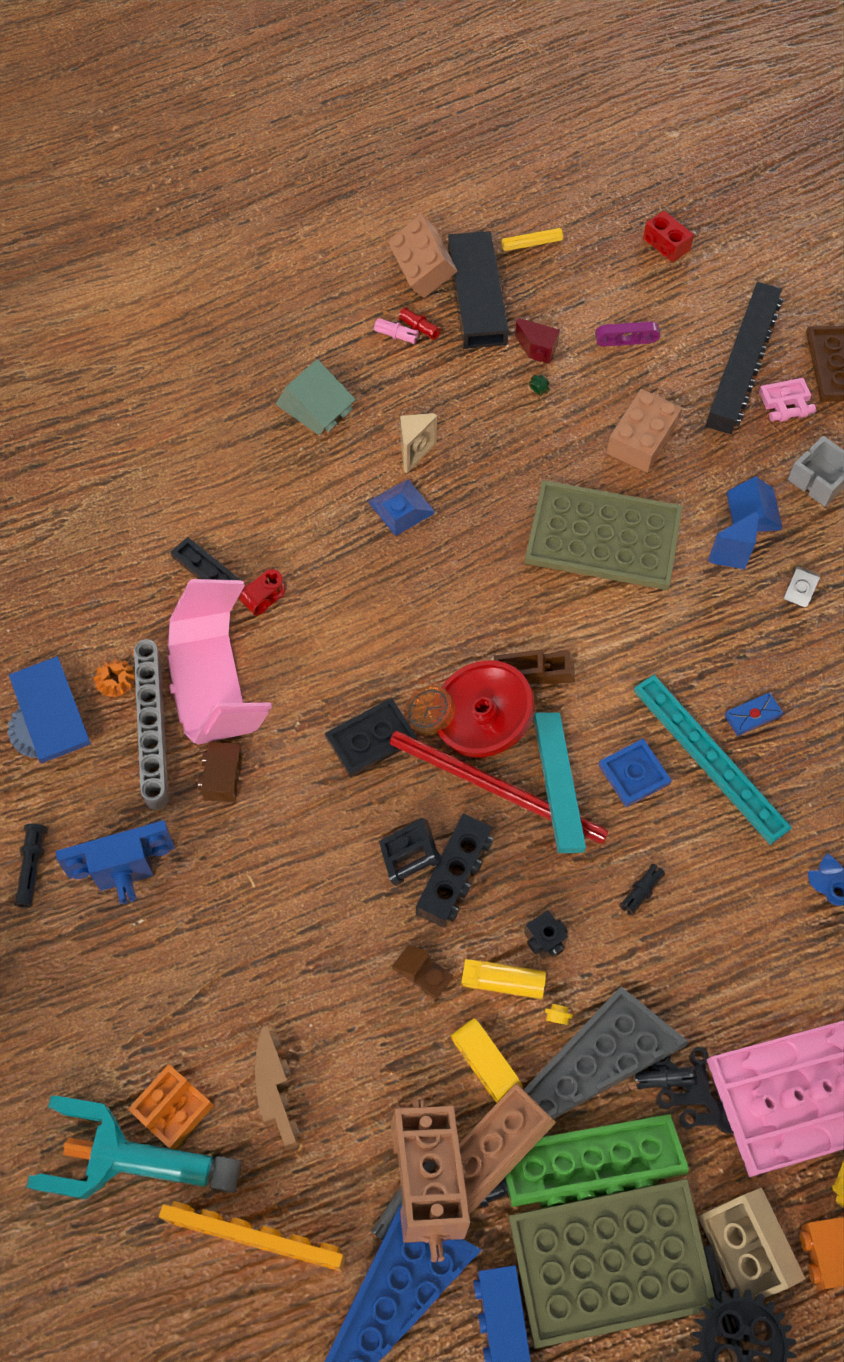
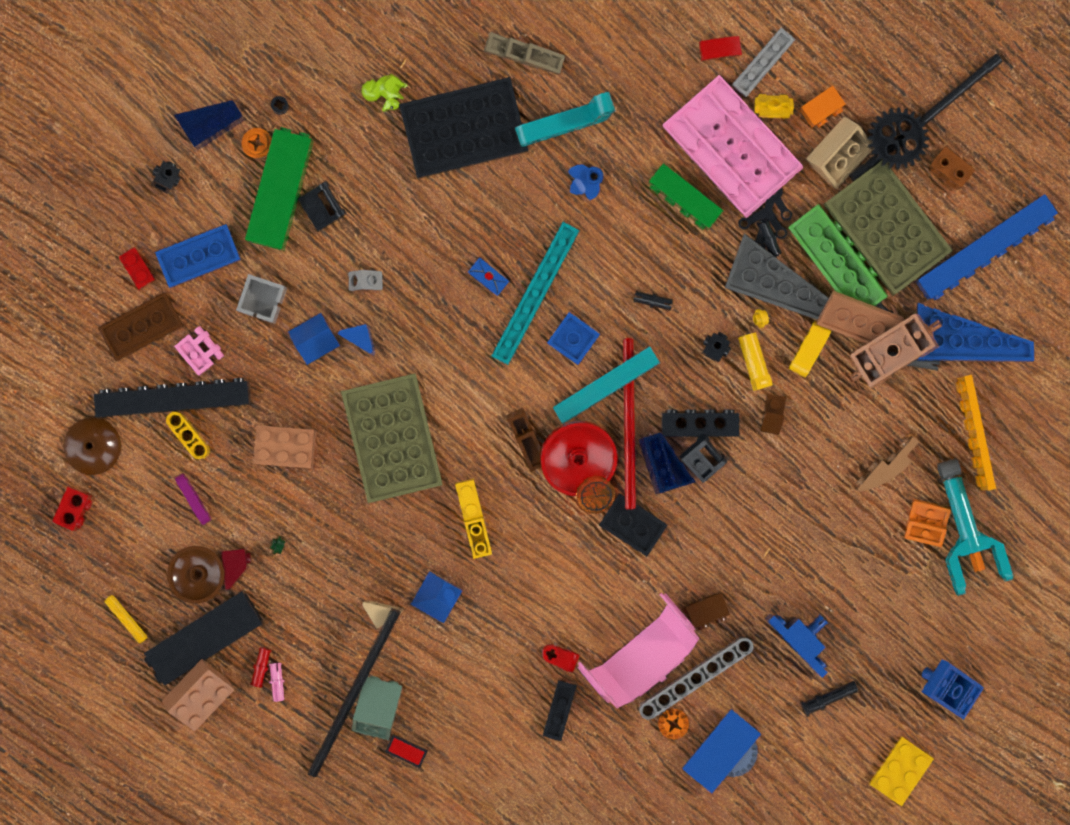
camera: 115 degrees left, 25 degrees up
(254, 412) = (406, 751): none -> red tile
(348, 381) = (353, 693): none -> black axle
(425, 798) = (663, 465): none -> clear blue wedge
(467, 575) = (473, 518): none -> yellow slope
(547, 301) = (183, 578): none -> reddish brown dish
(698, 354) = (181, 429): none -> yellow beam
(724, 279) = (105, 447): none -> reddish brown dish
(766, 993) = (685, 197): none -> green brick

